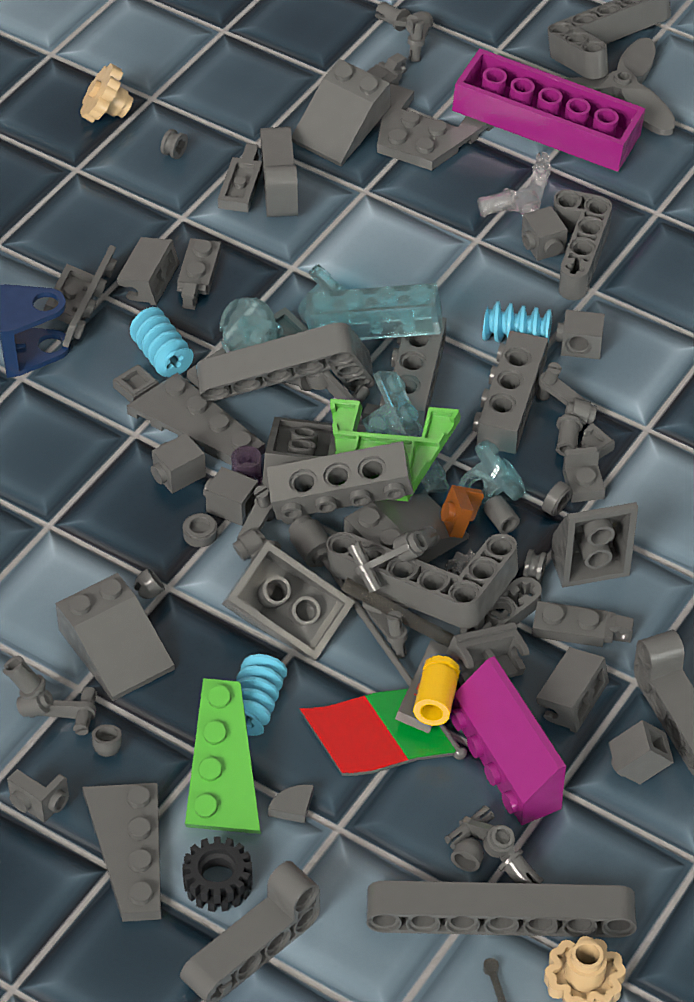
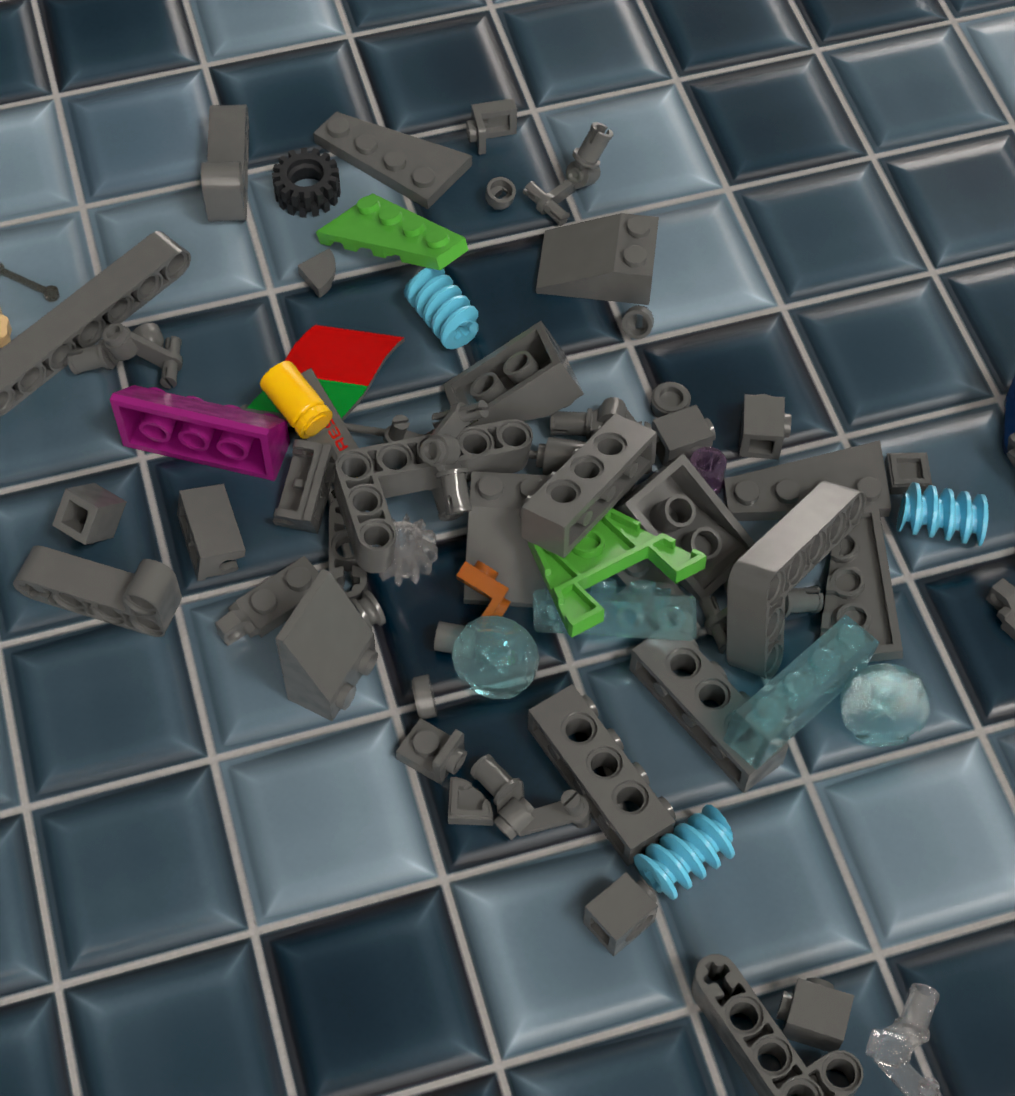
camera: 130 degrees right, 10 degrees up
(247, 324) = (869, 565): clear light blue tile -> none

